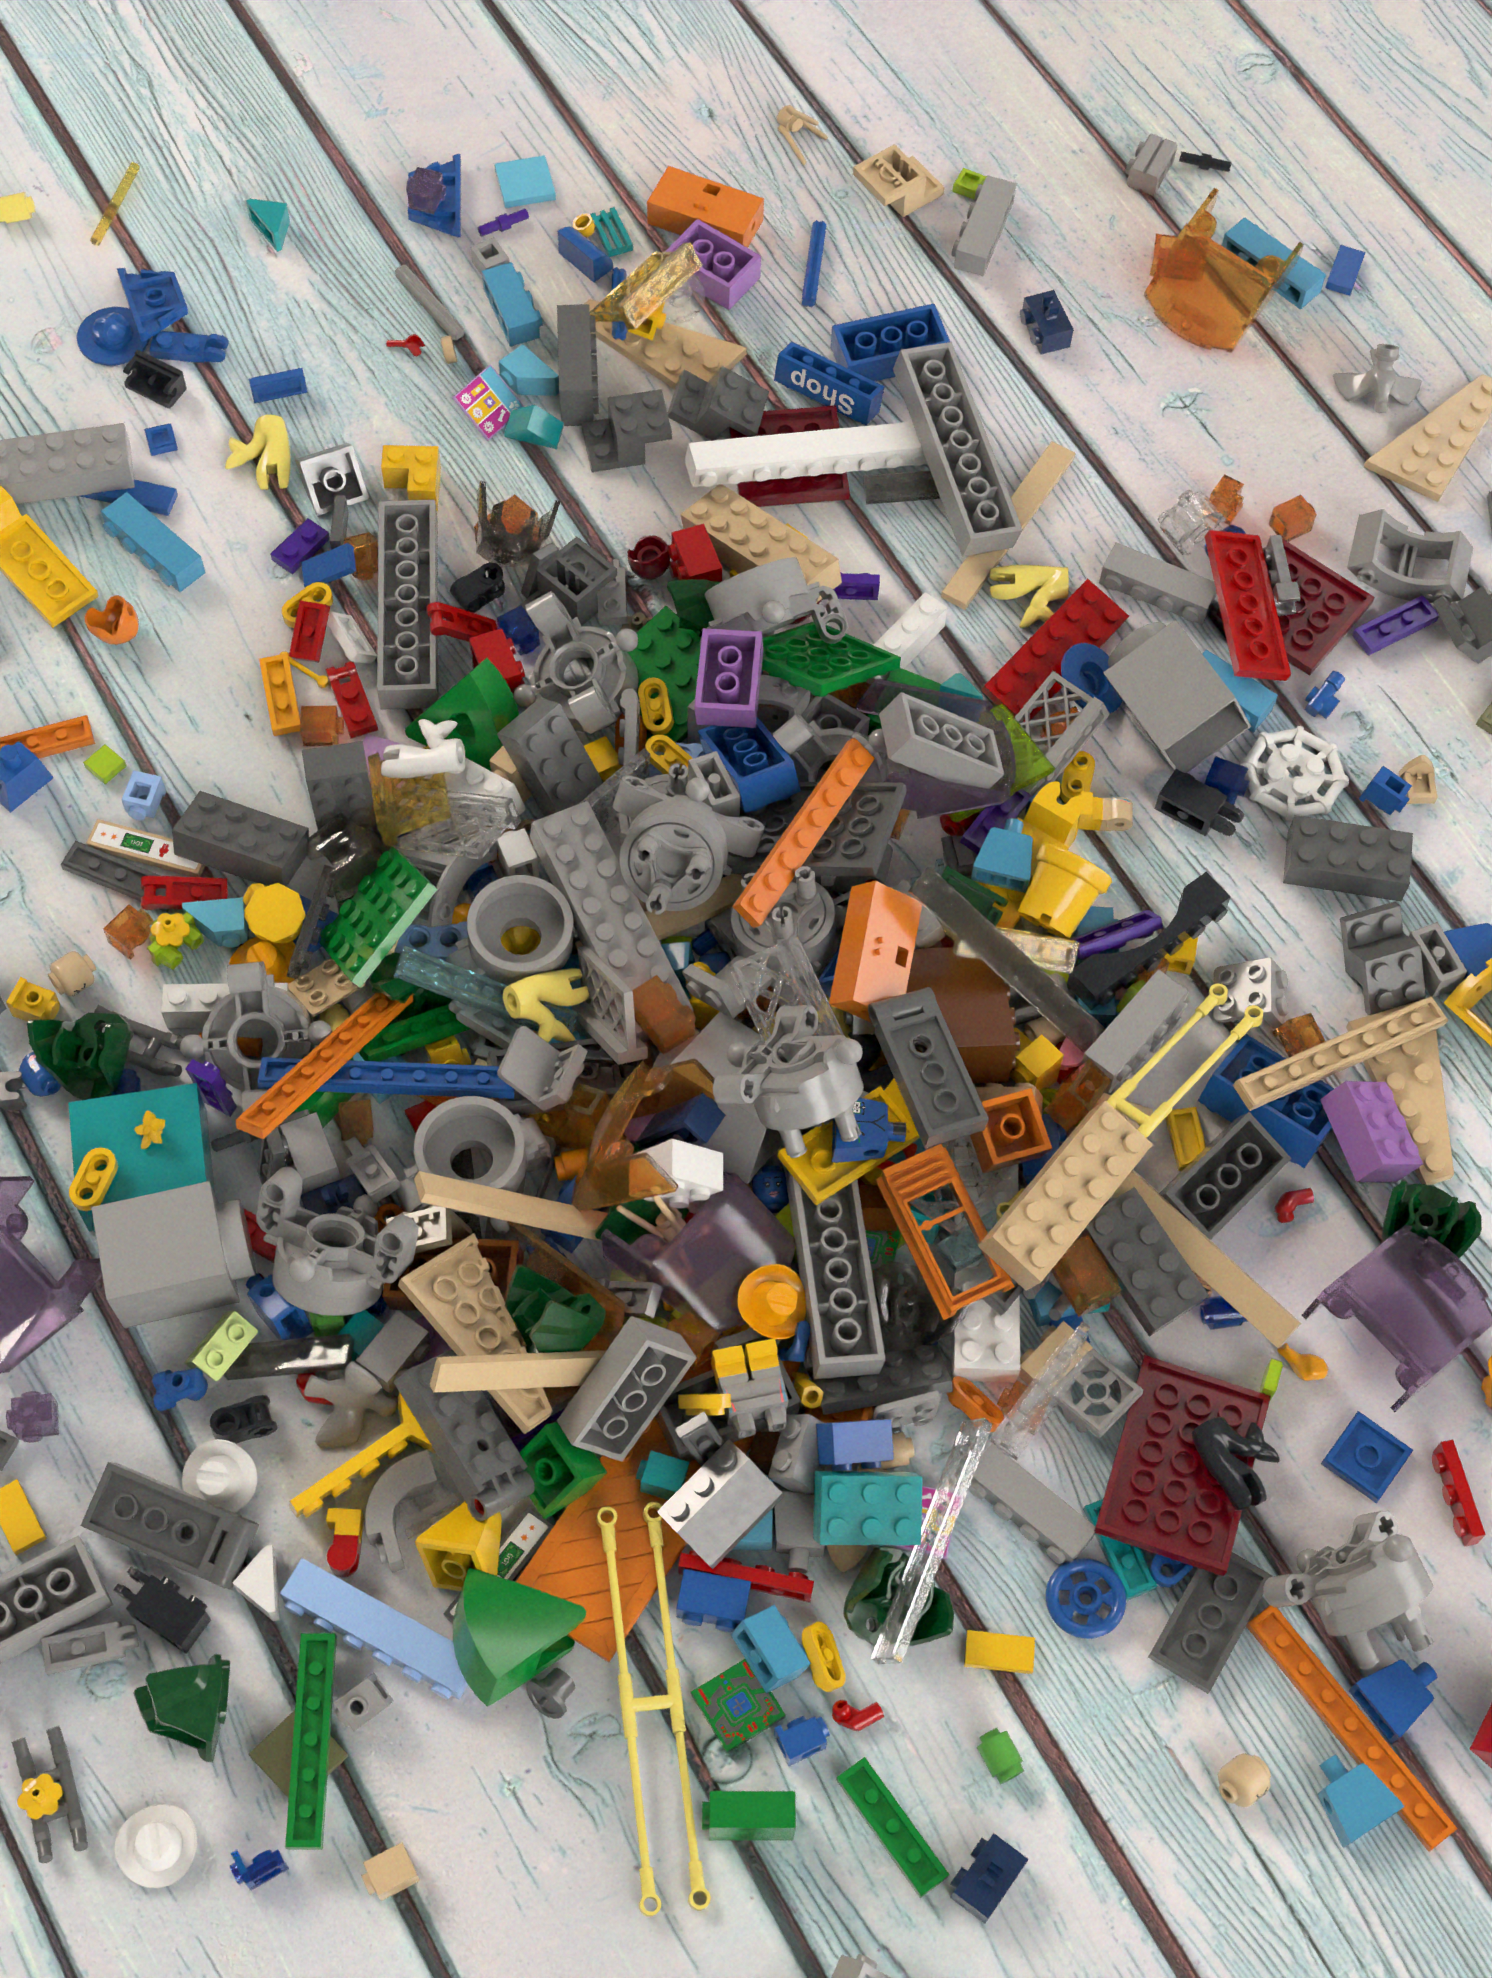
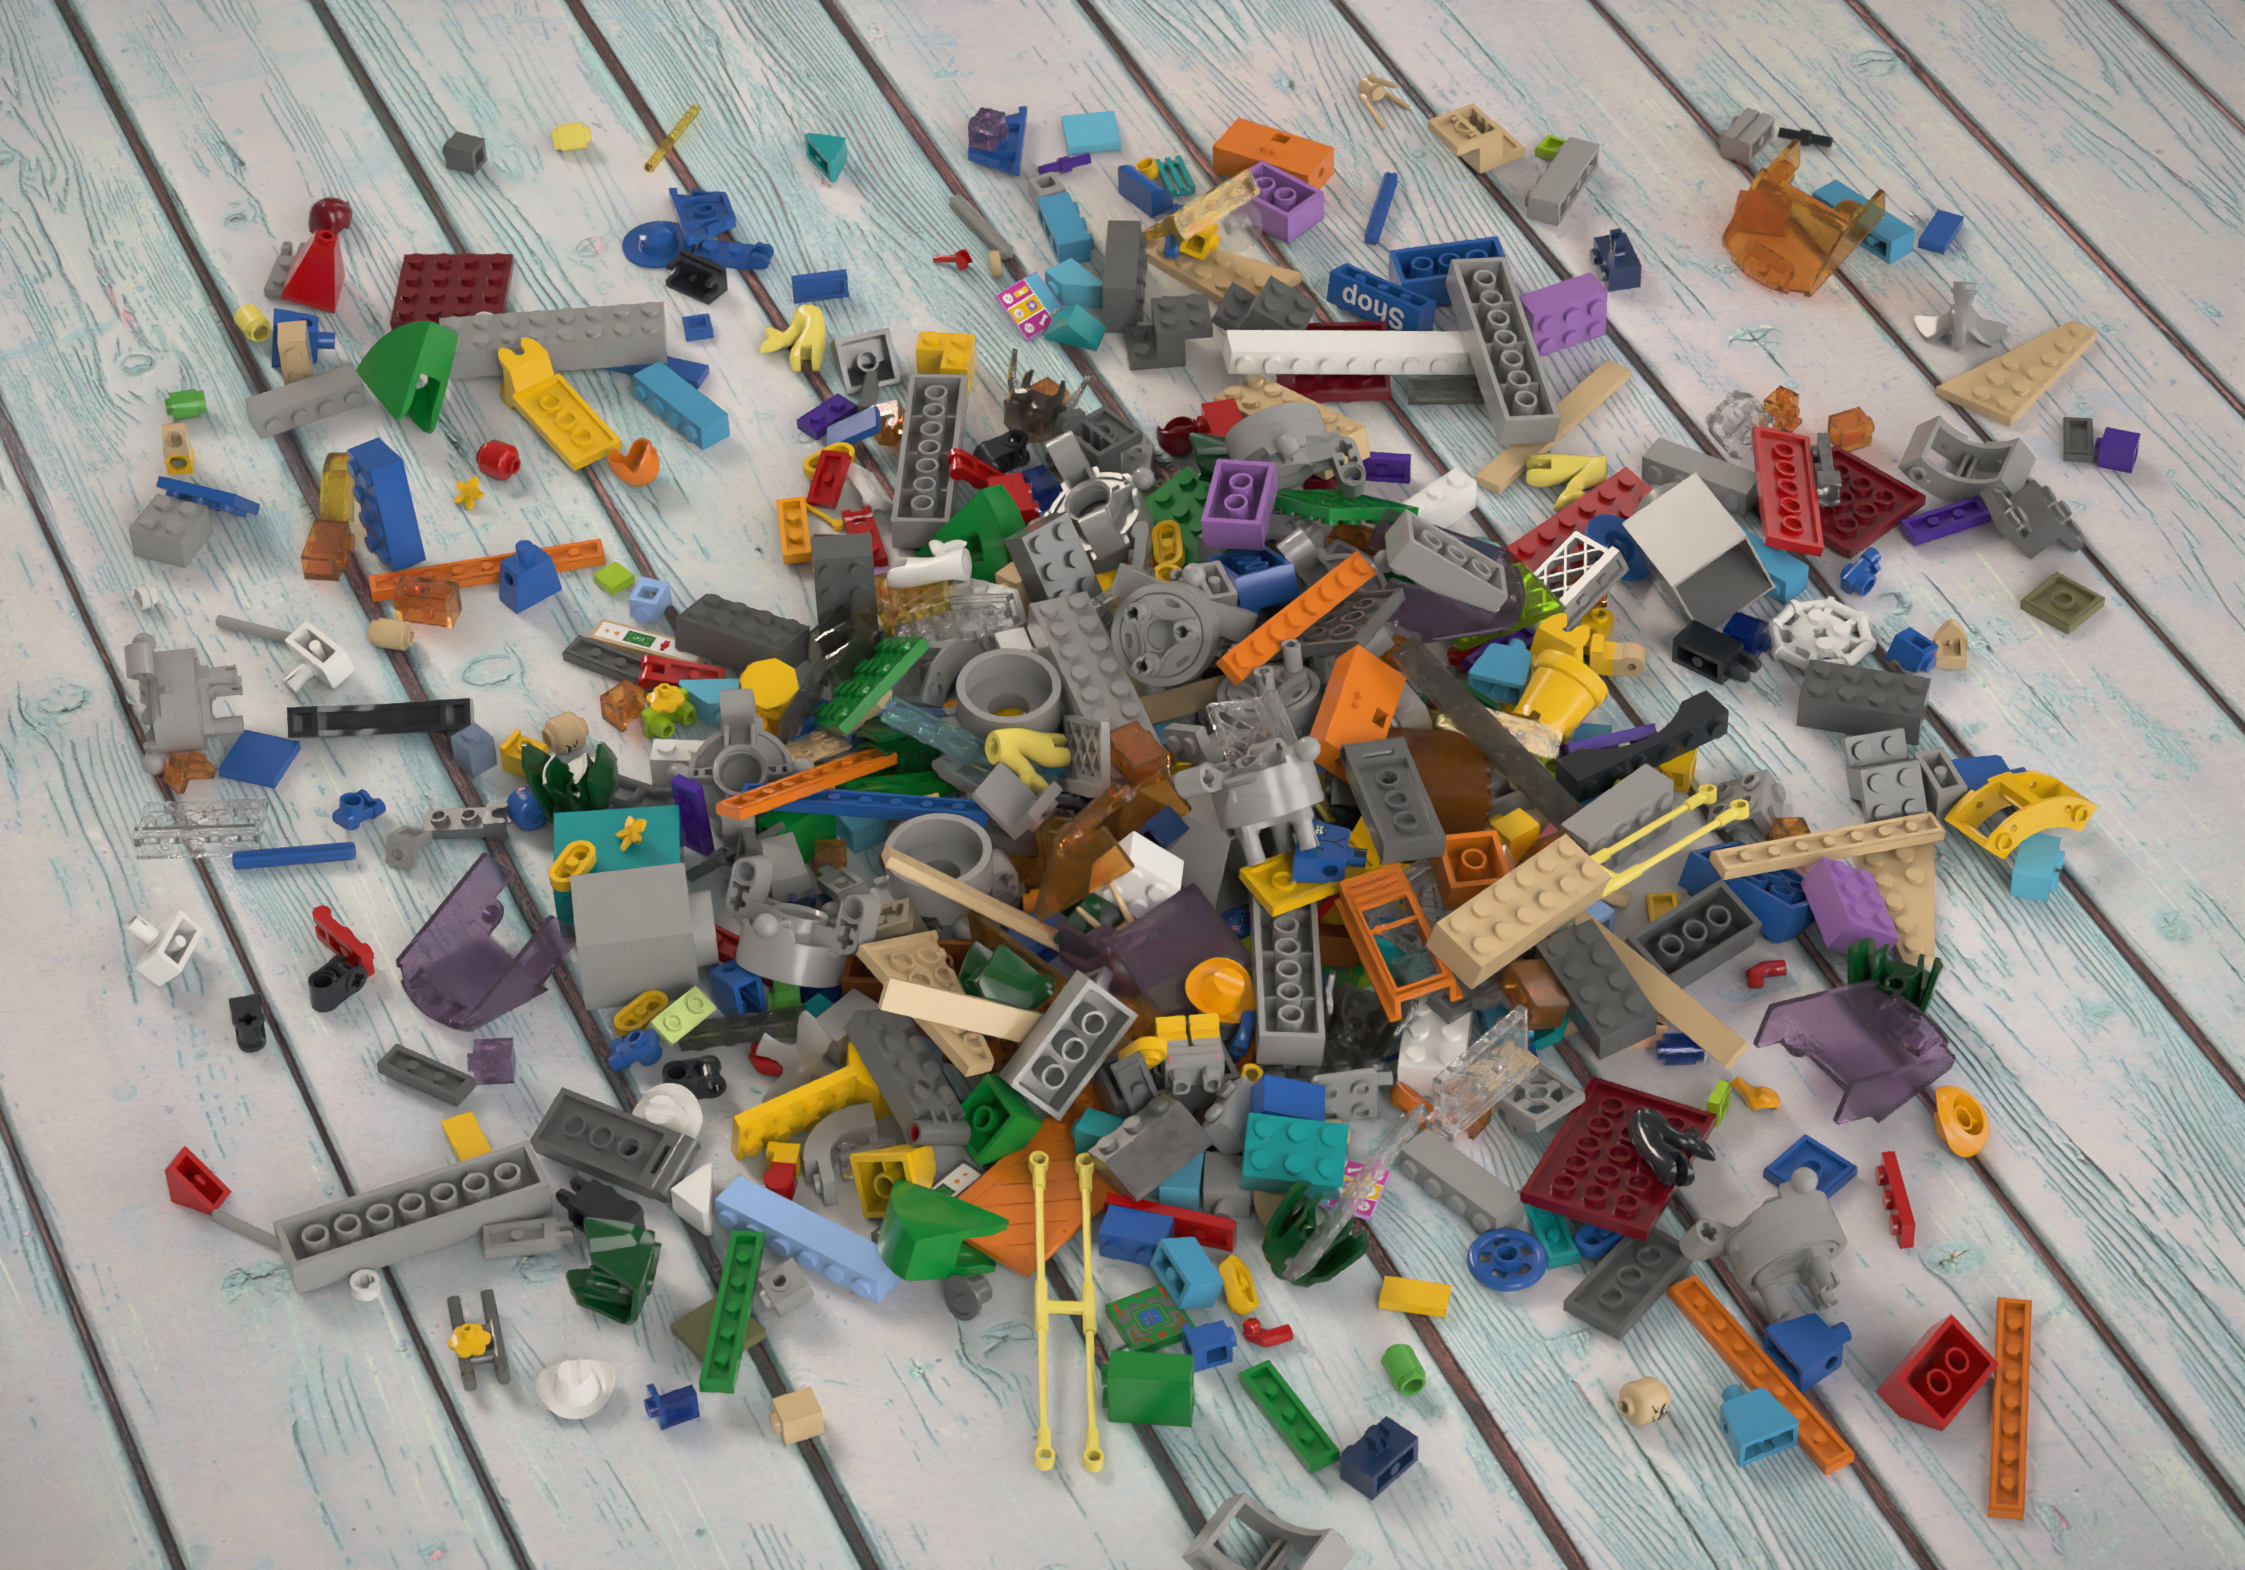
camera: 10 degrees right, 20 degrees down
(180, 1338) = (640, 1012): none -> yellow plate
(1010, 392) = (1566, 313): none -> medium lavender brick

